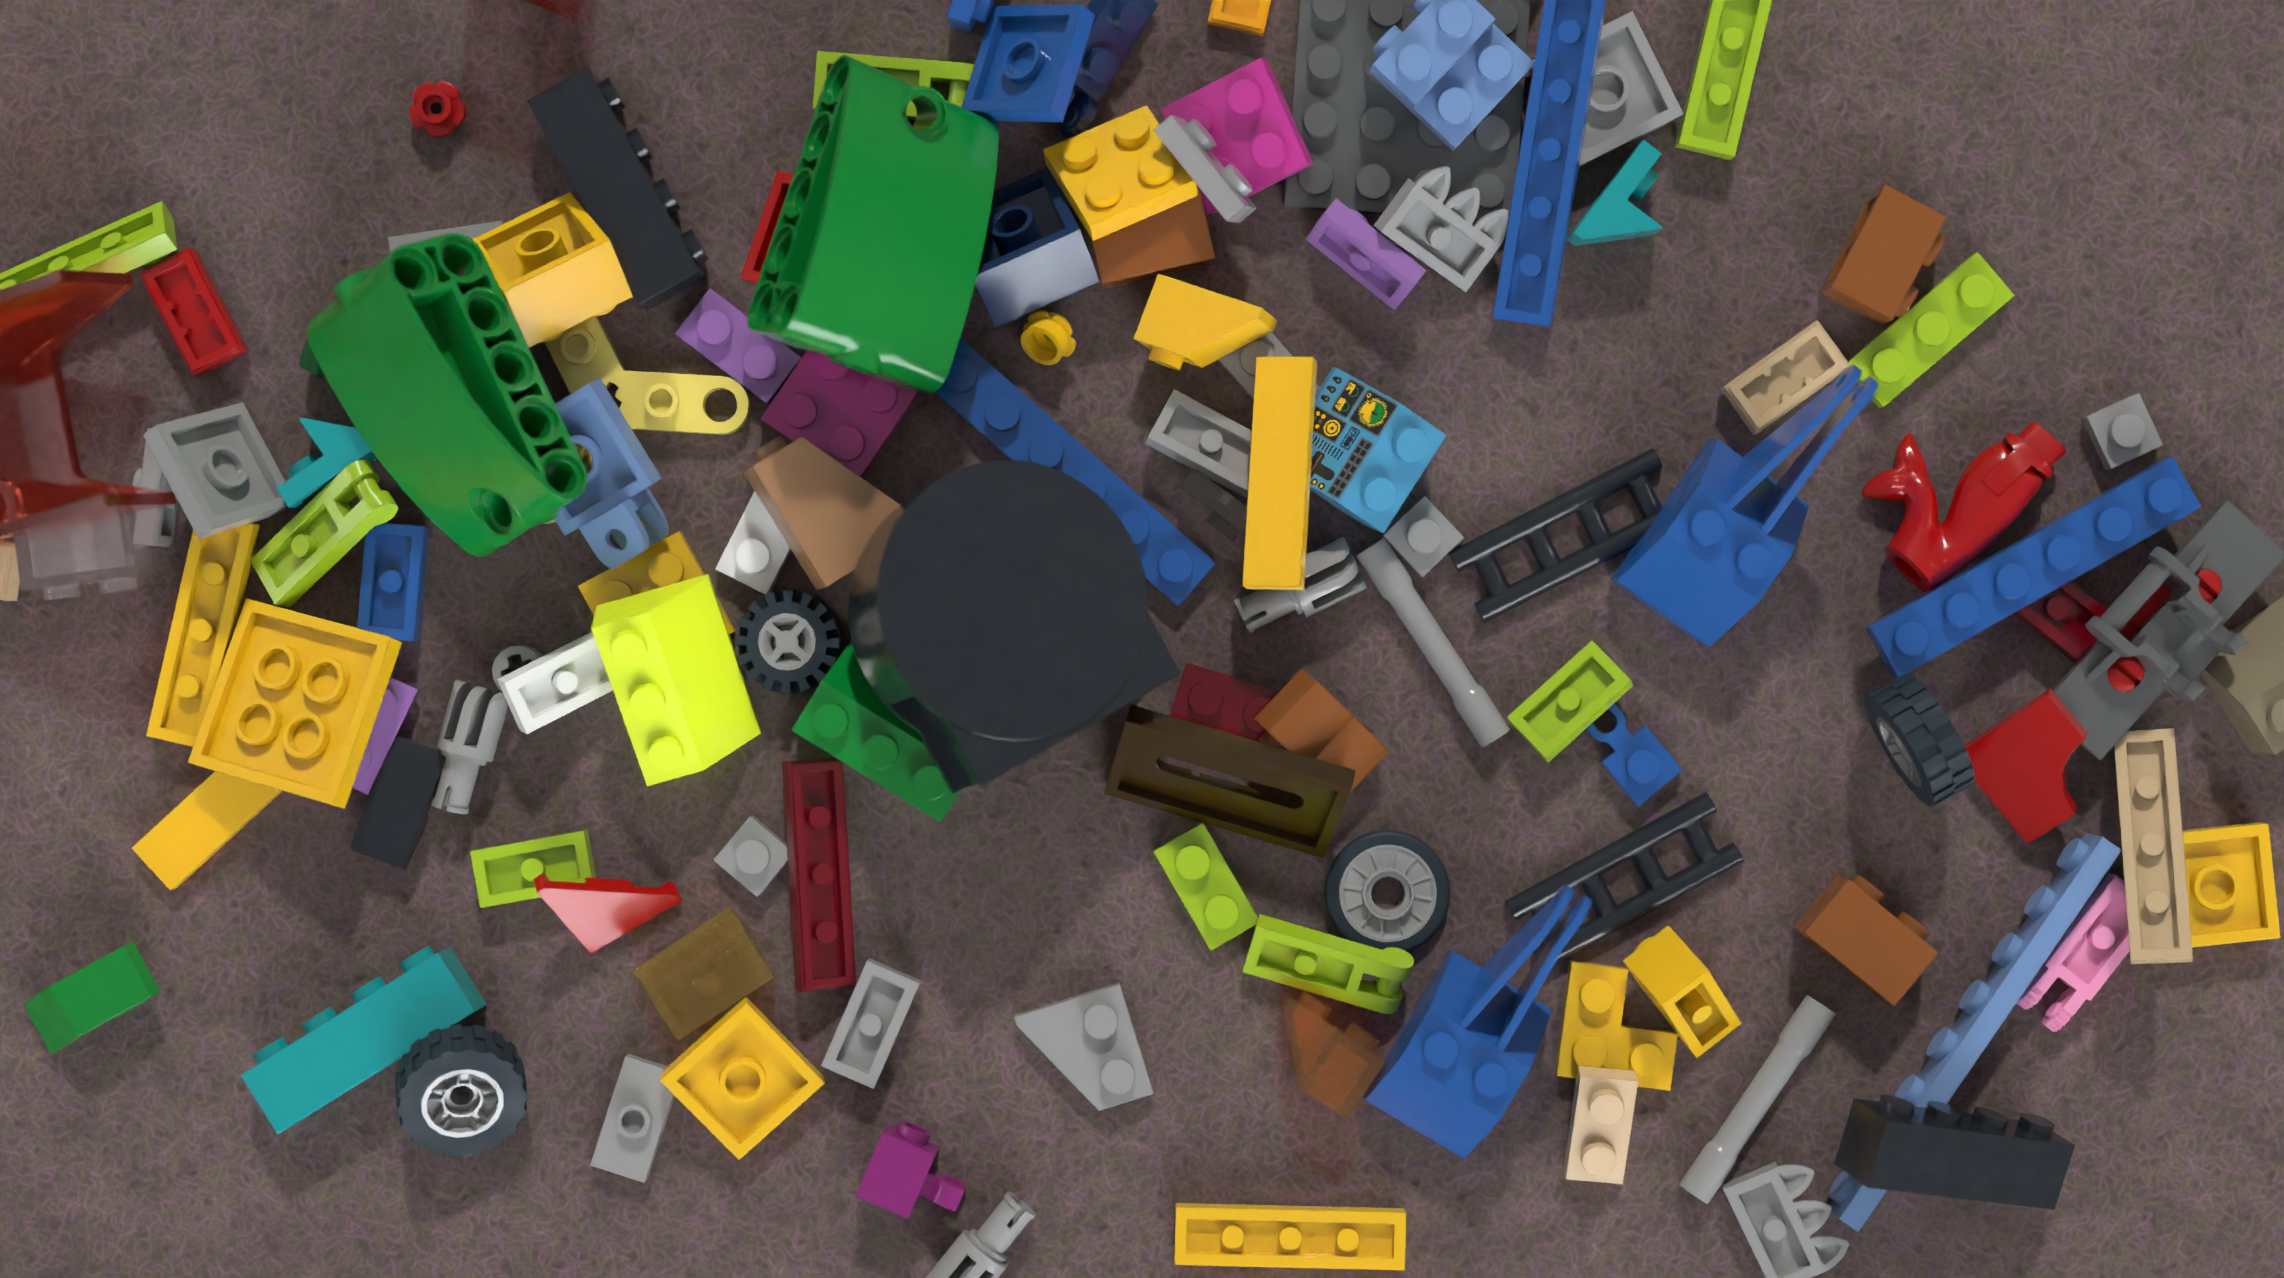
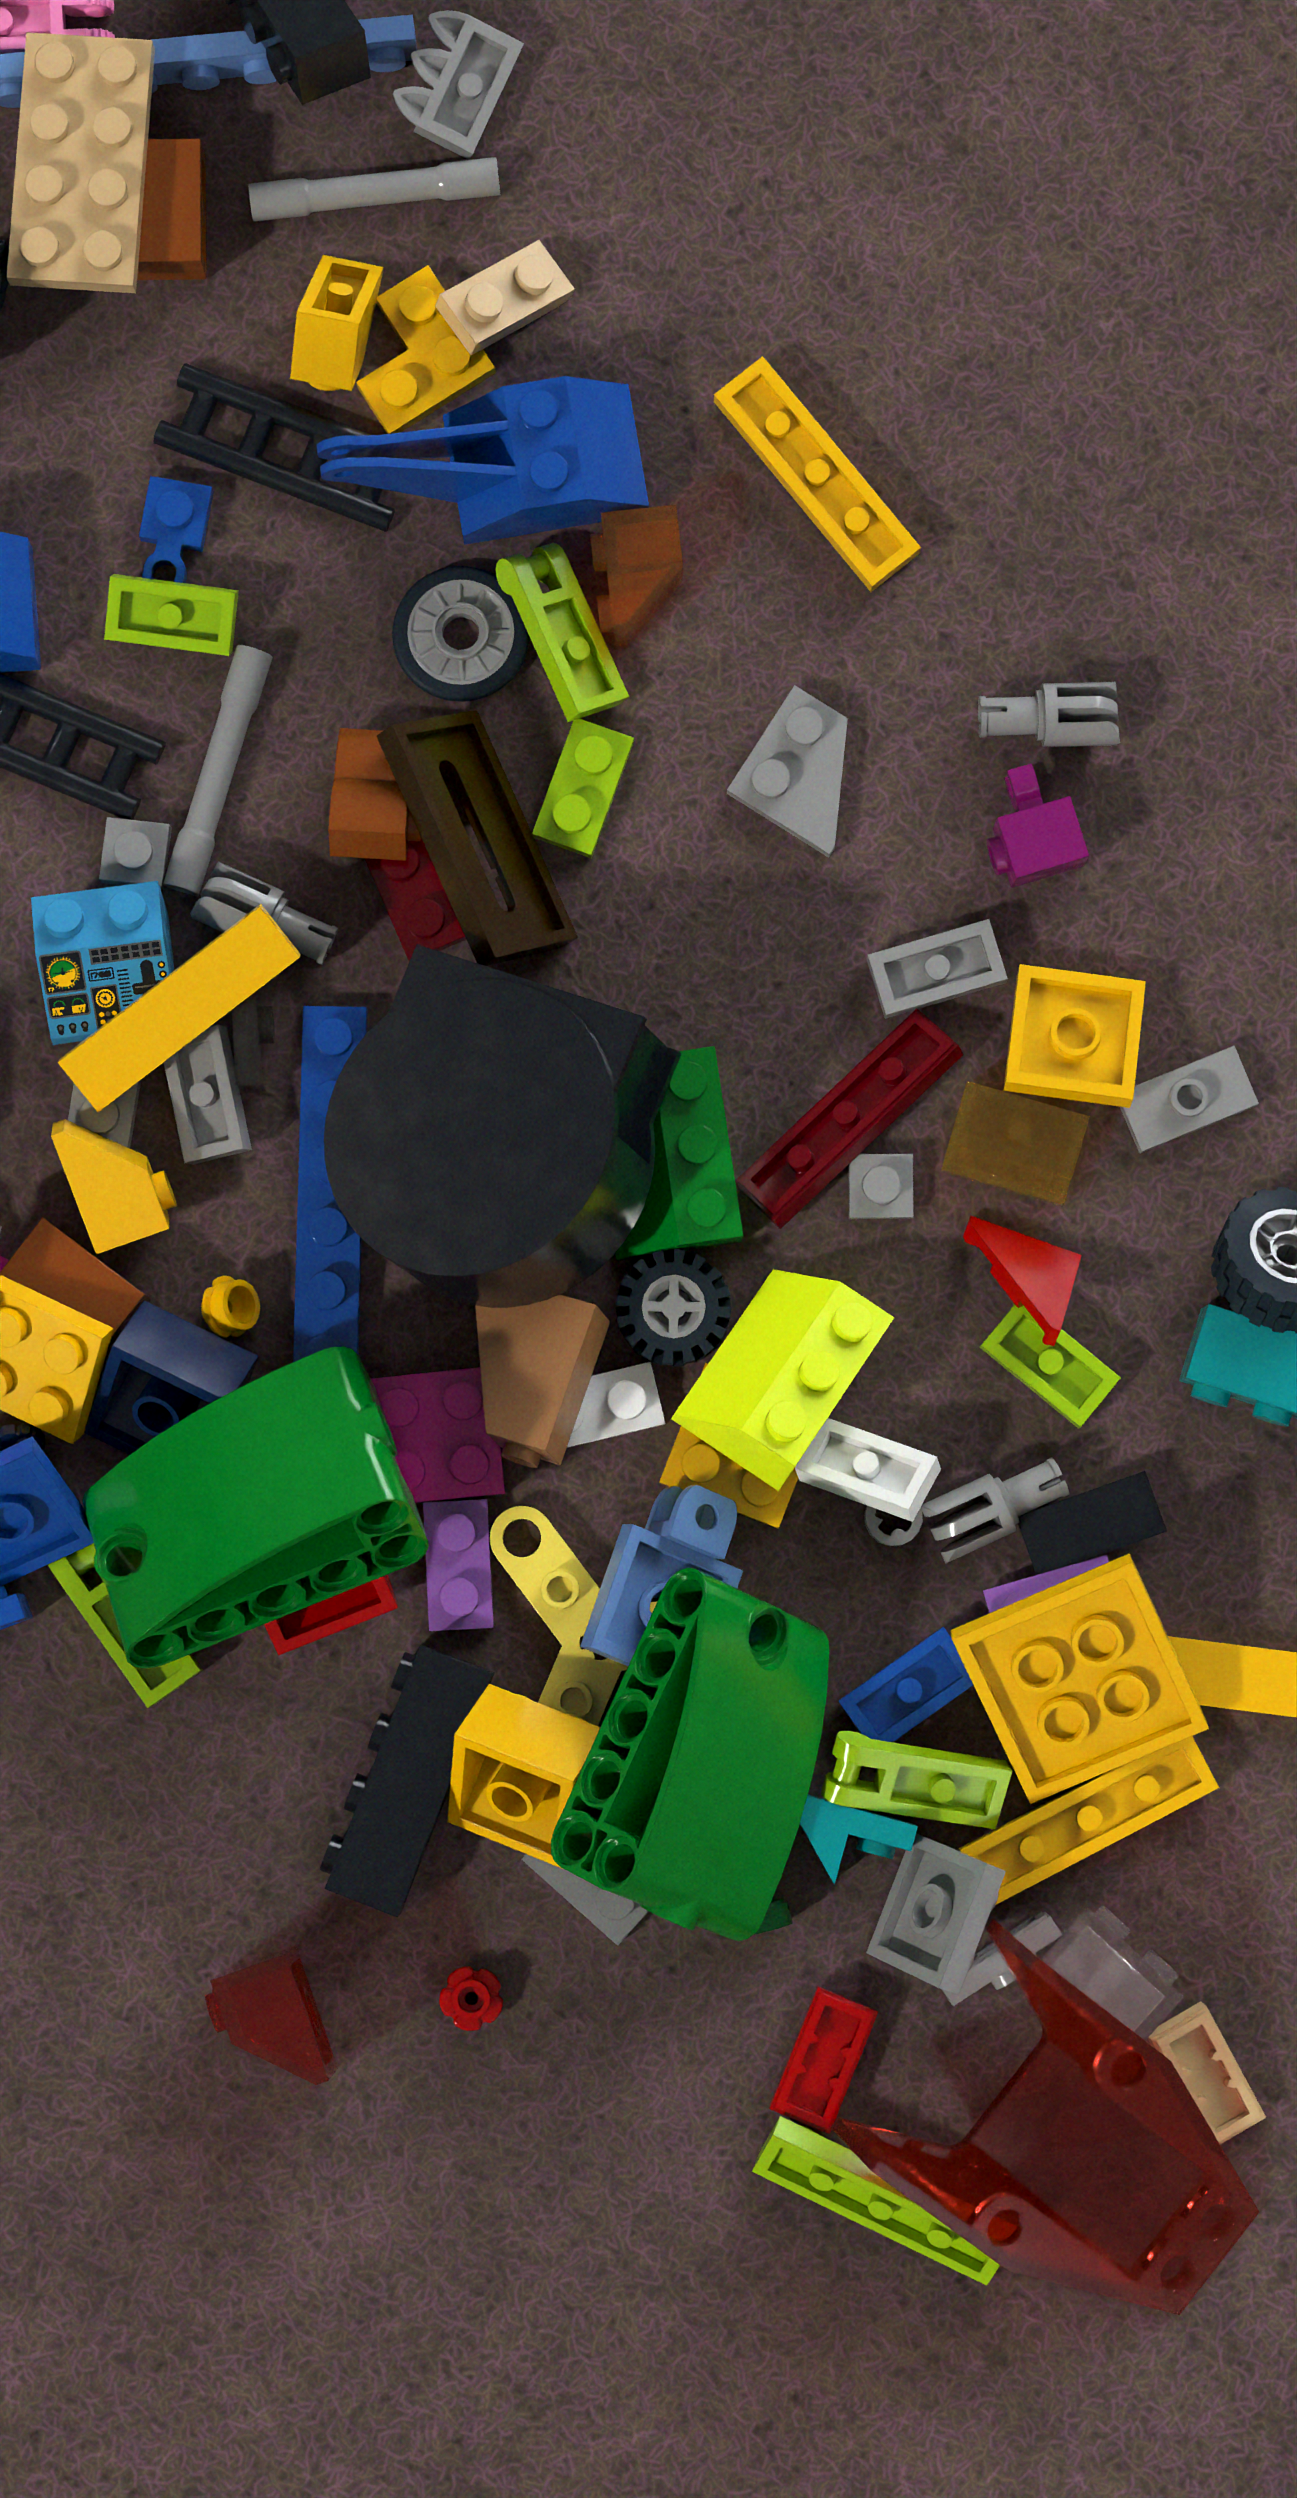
camera: 130 degrees left, 5 degrees down
(1947, 907) = (80, 162): none -> tan plate

